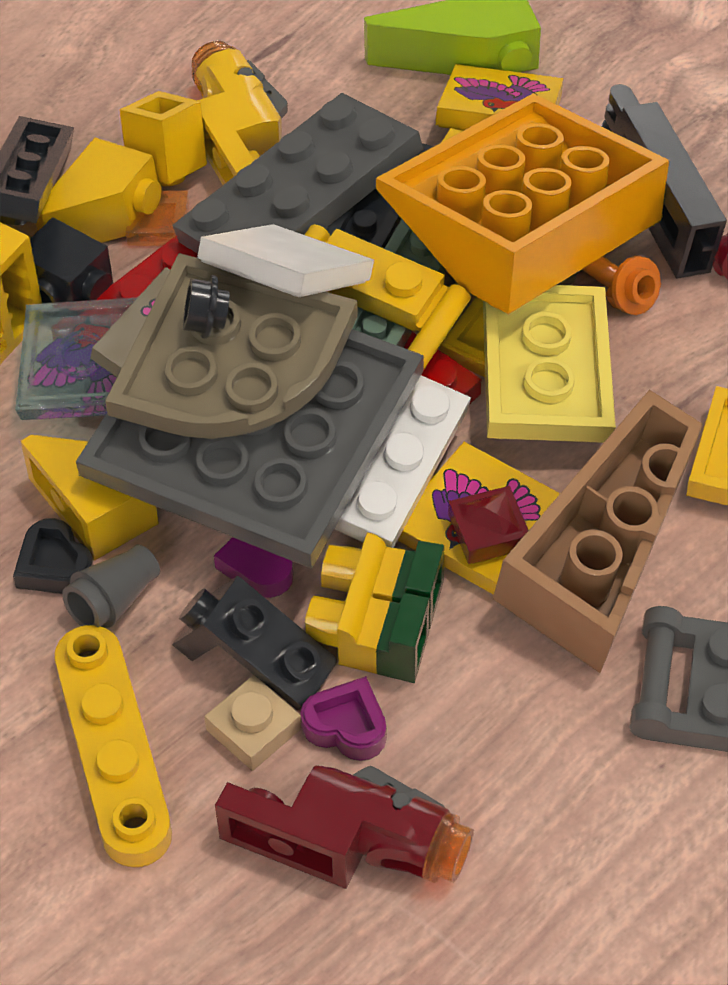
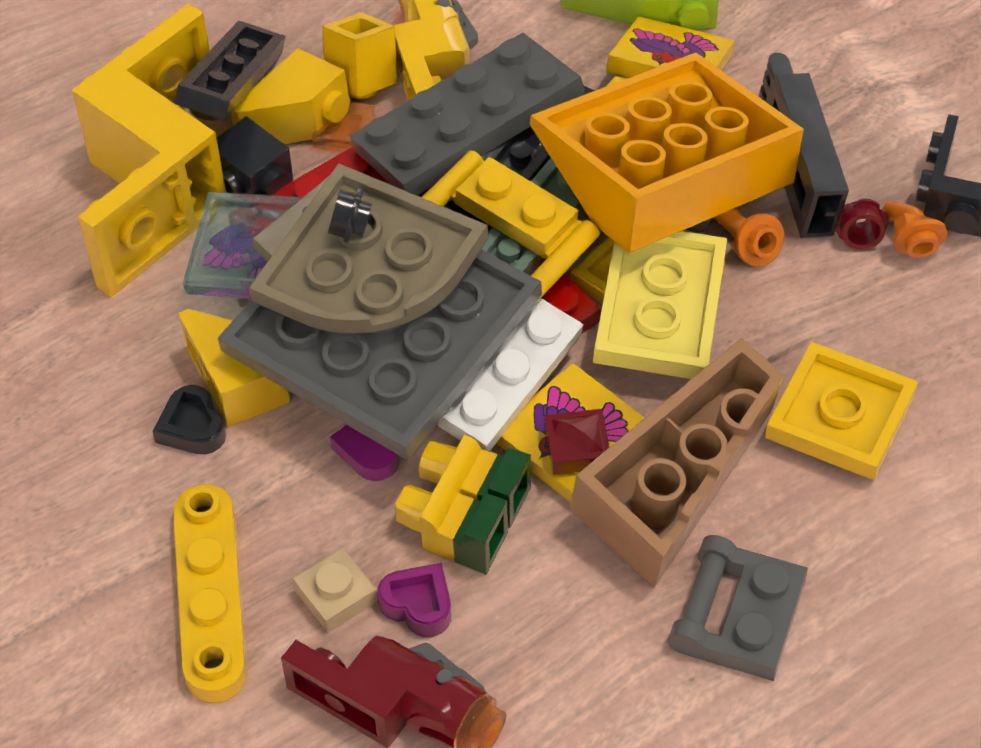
camera: 10 degrees right, 0 degrees up
(108, 588) = (231, 454): dark grey cone -> none
(257, 638) = (351, 517): black bracket -> none
(285, 260) = (432, 181): white tile -> none

